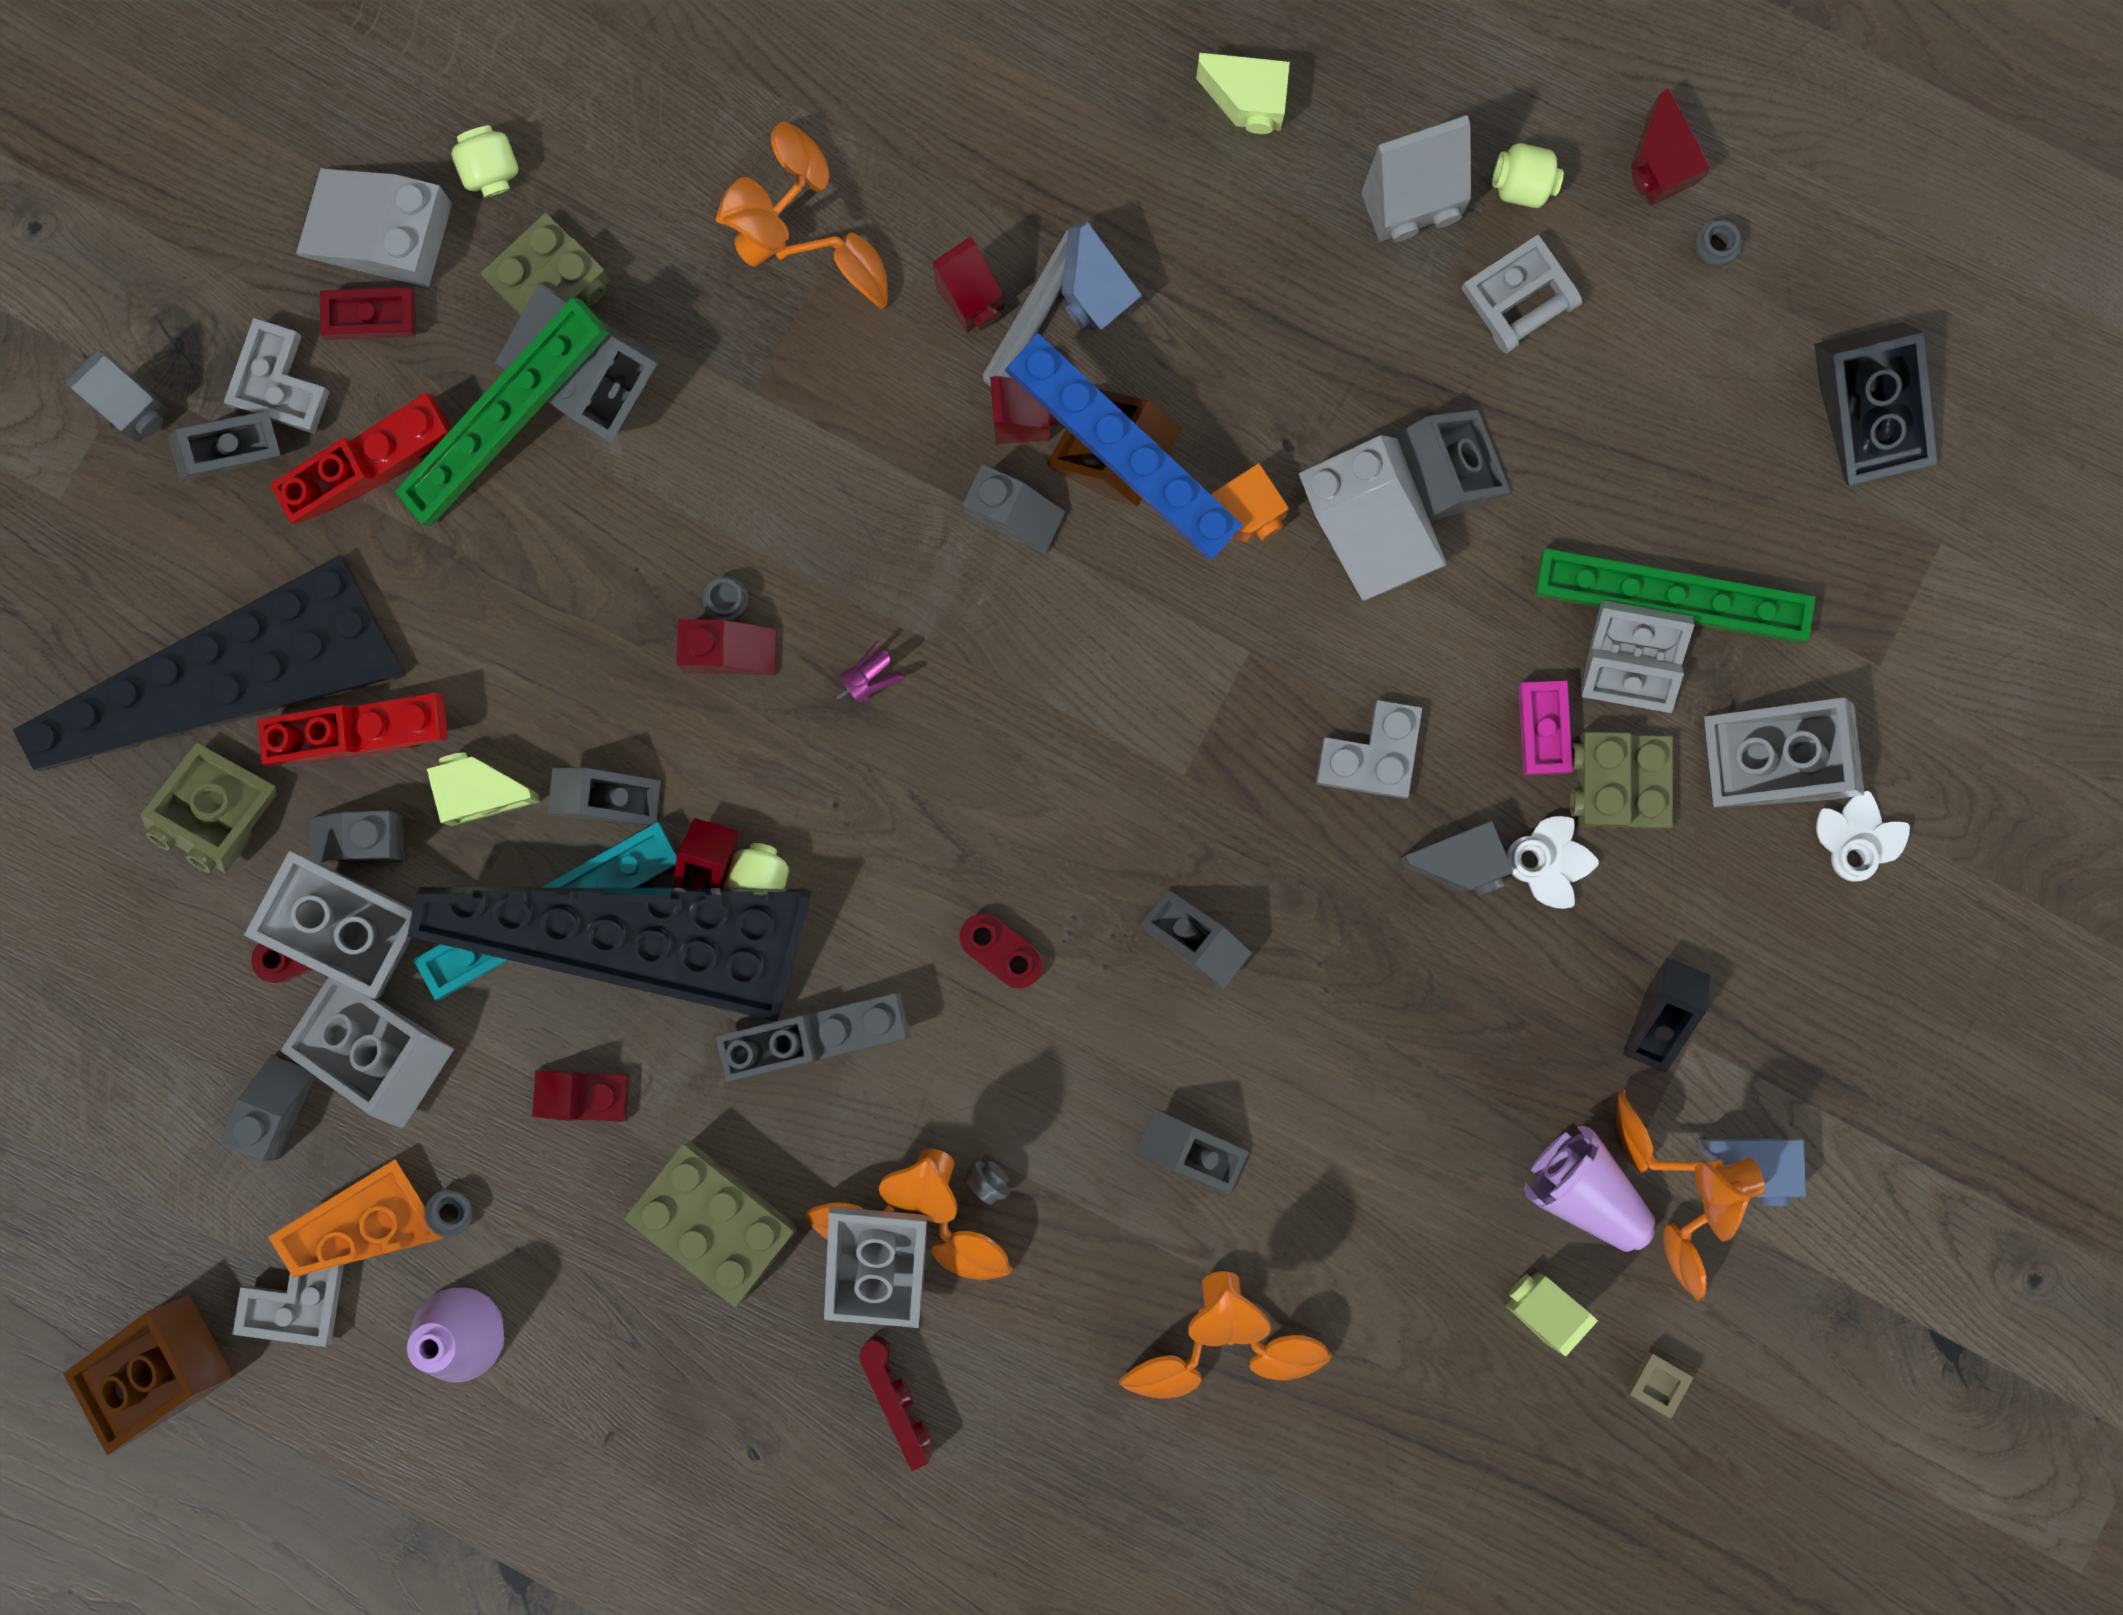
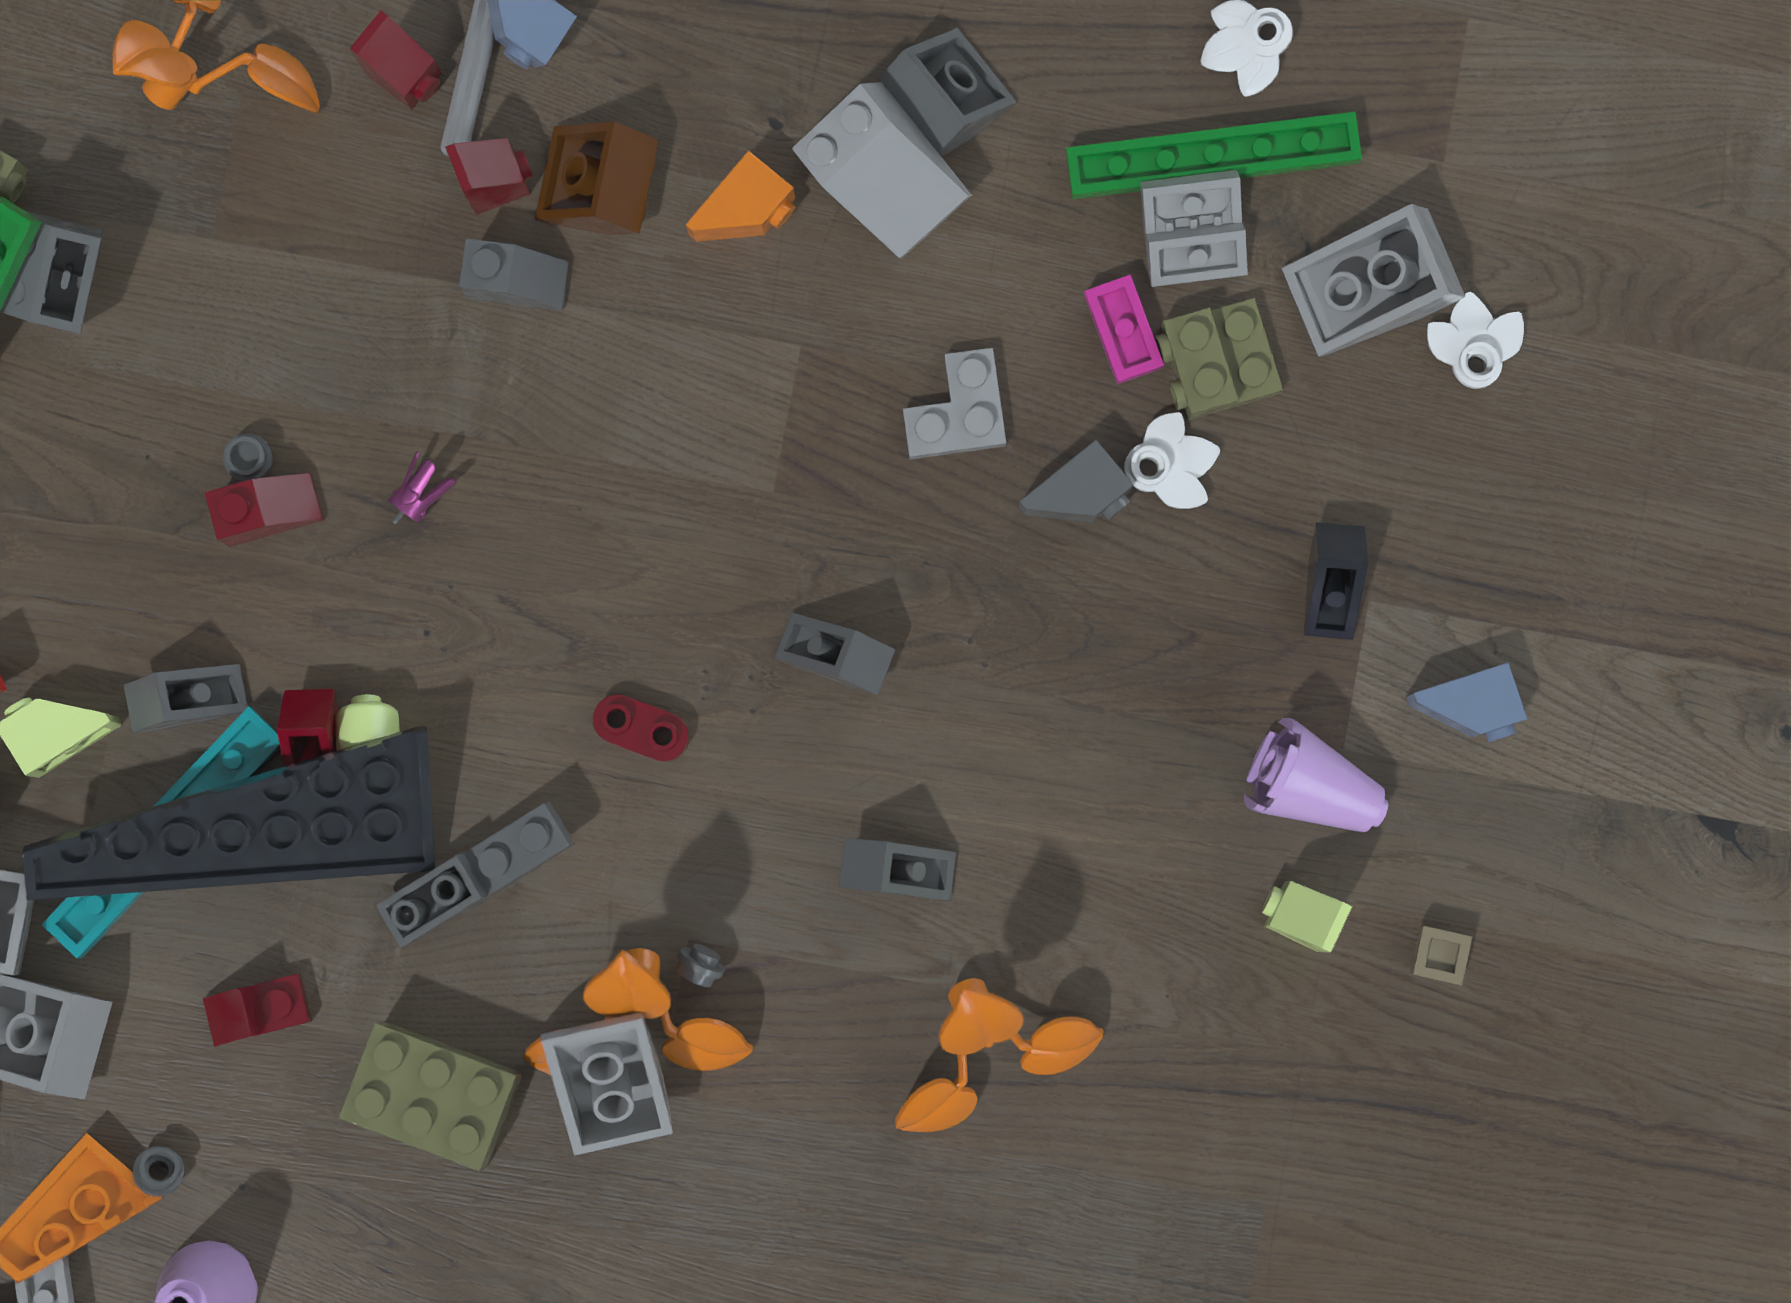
camera: 15 degrees left, 0 degrees up
(894, 1400) = (672, 1215): dark red plate -> none
(1123, 447) = (603, 176): blue plate -> none
(1722, 1189) = (1430, 733): orange plant -> none
(1729, 506) = (1240, 47): none -> white plate

